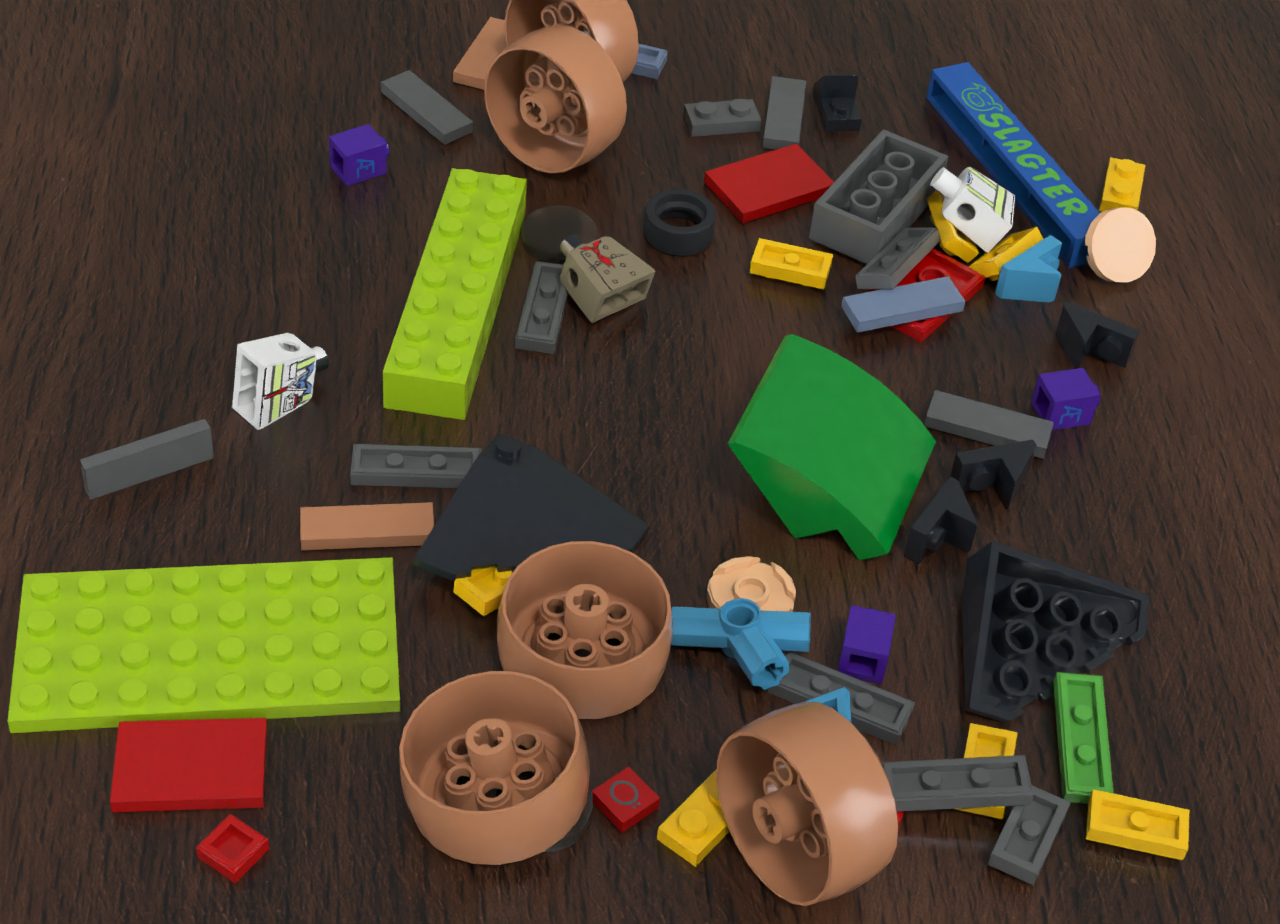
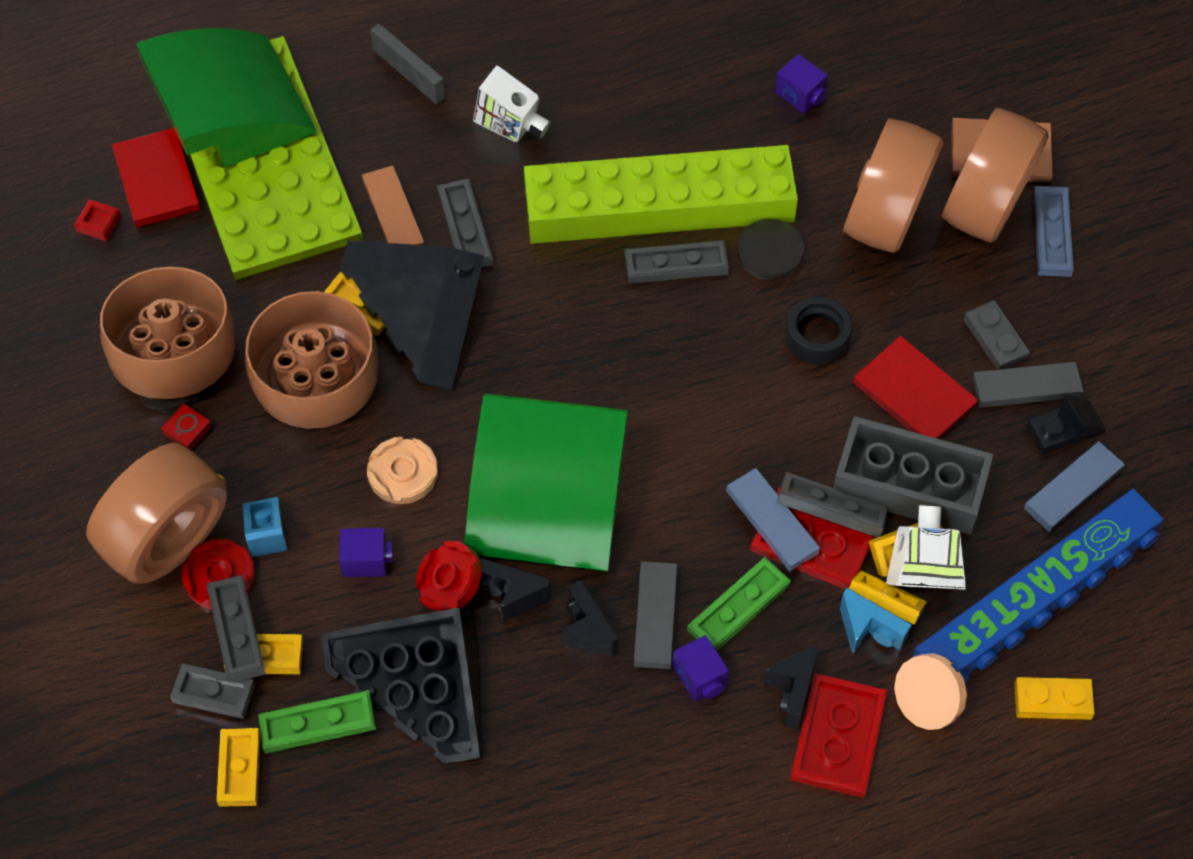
camera: 80 degrees right, 15 degrees up
(117, 629) = (225, 92): none -> green slope
(427, 107) = (905, 105): dark grey tile -> none
(603, 276) = (710, 285): dark tan torso -> none
(746, 635) = (343, 469): dark azure piece -> none
(791, 263) = (800, 426): yellow plate -> none
(872, 708) = (316, 549): dark grey tile -> none
(904, 114) = (1074, 486): none -> sand blue tile
(921, 568) = (449, 576): none -> red tile
(987, 362) = (740, 604): none -> bright green tile
(1166, 335) = (839, 735): none -> red tile

